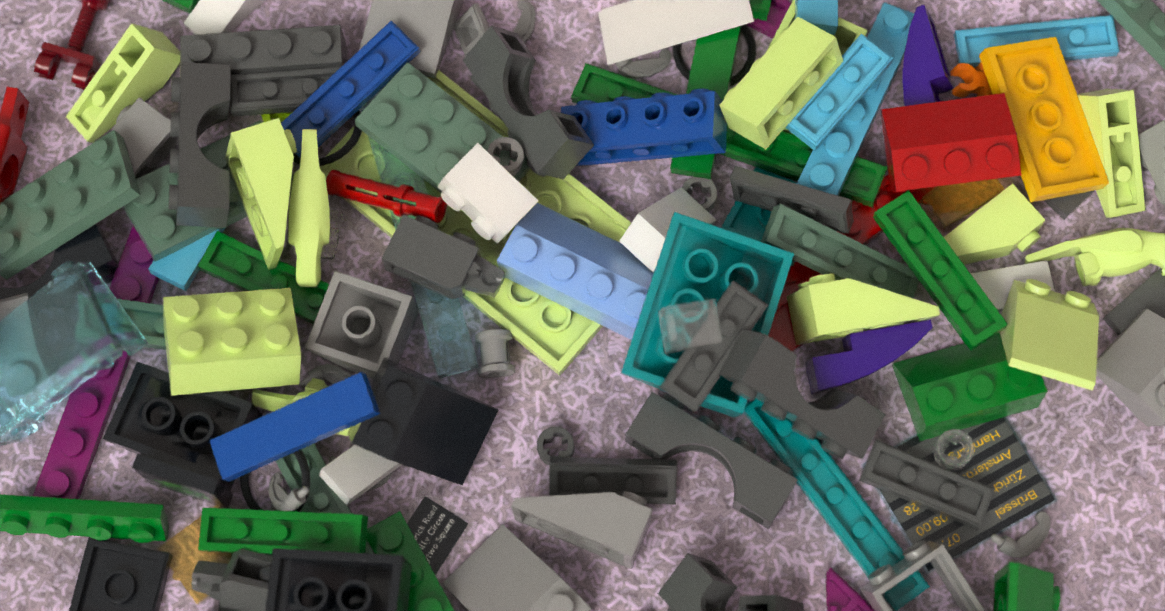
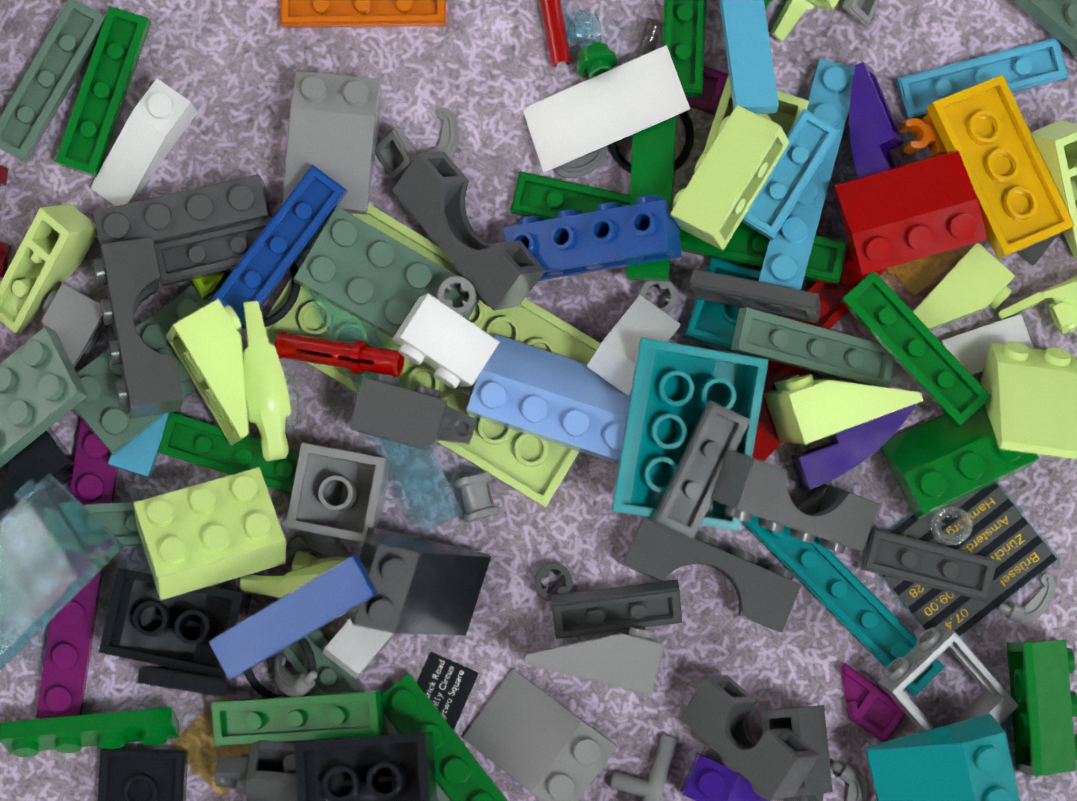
camera: 10 degrees left, 10 degrees up
(689, 325) = (675, 457): clear panel -> none

